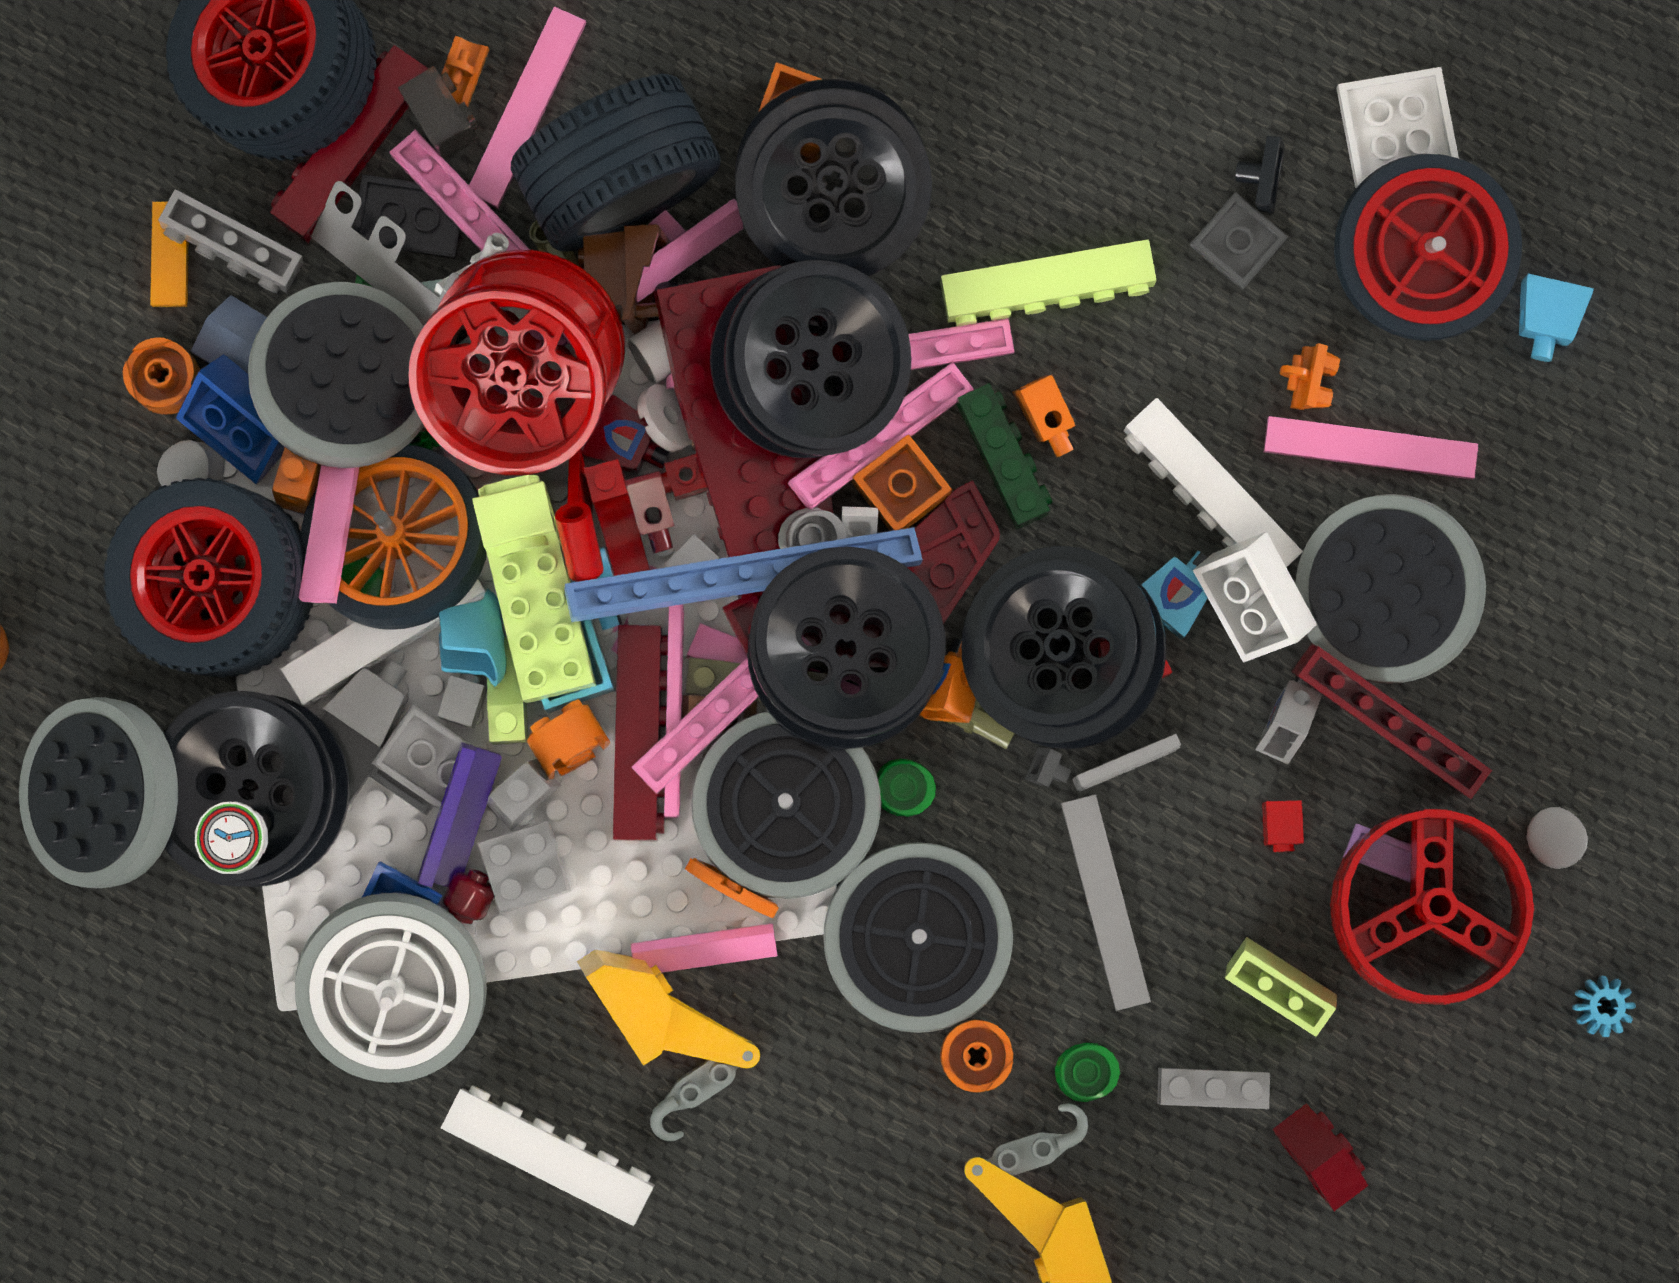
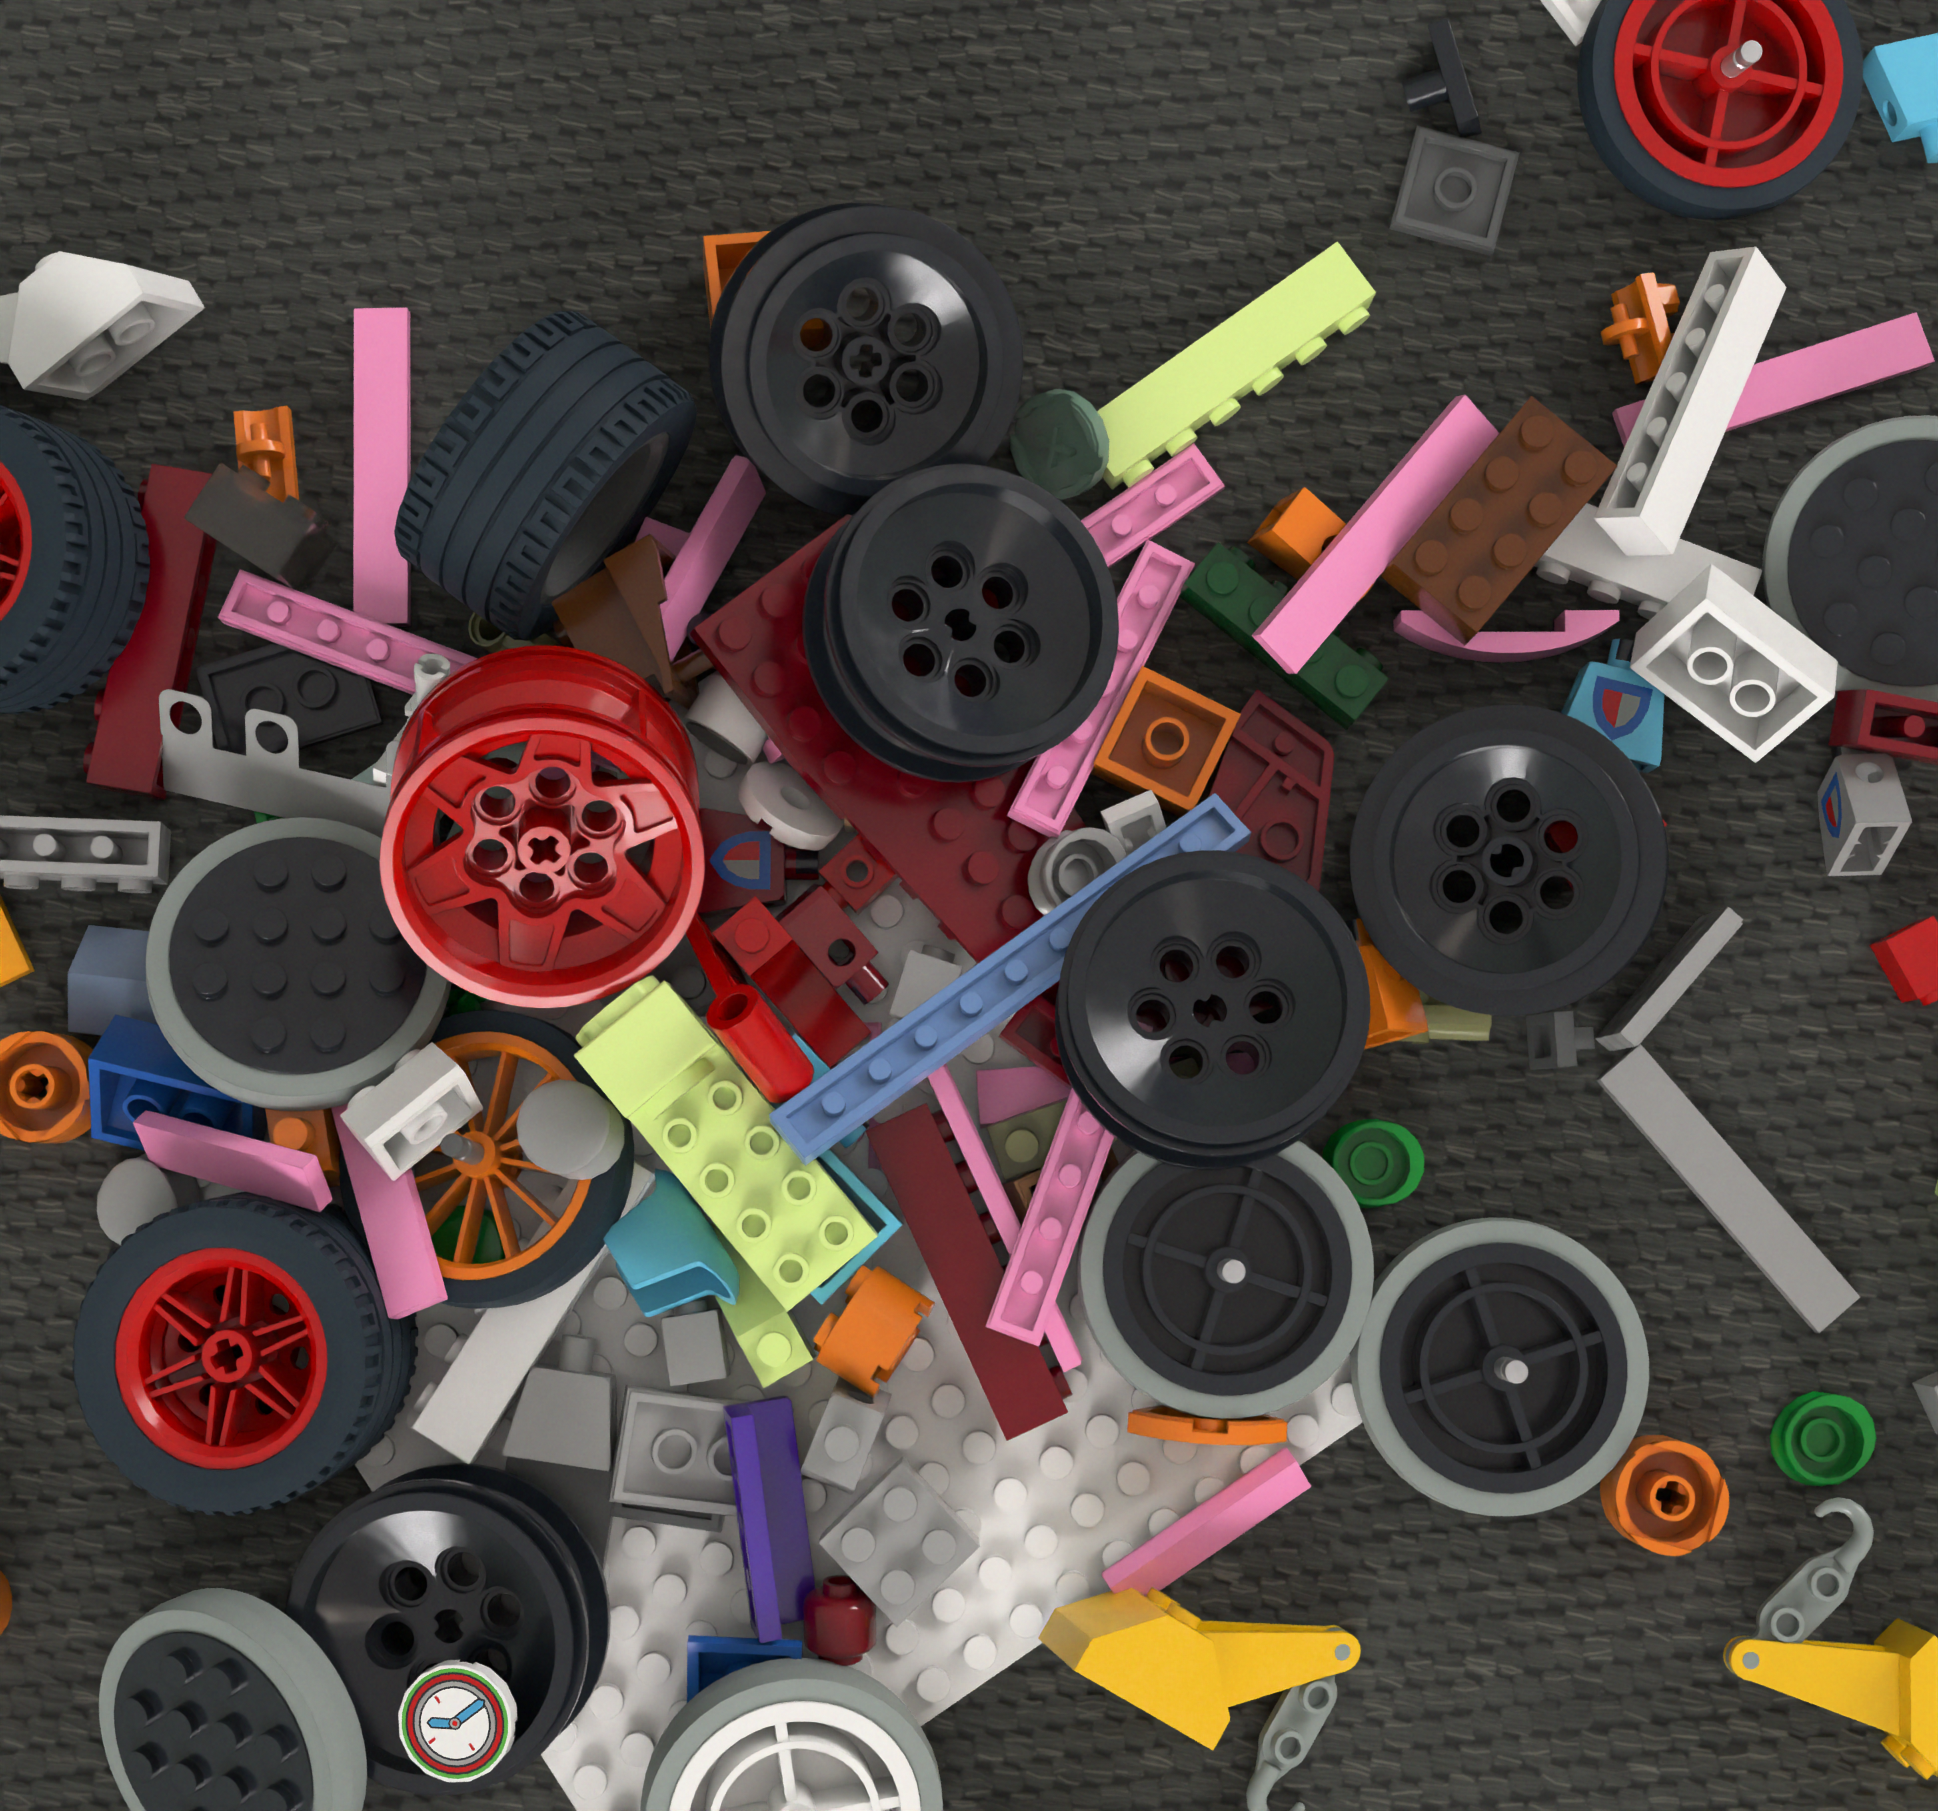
camera: 30 degrees left, 0 degrees up
(252, 468) = (233, 1160): none -> bright pink tile
(367, 487) = (412, 1109): none -> white slope
(450, 541) = (570, 1130): none -> light grey piece
(926, 281) = (1060, 443): none -> sand green tile
(1082, 422) = (1375, 534): none -> bright pink tile
(1157, 448) = (1498, 520): none -> reddish brown brick
(1177, 535) = (1571, 631): none -> bright pink slope
(1308, 432) = (1690, 403): none -> white brick

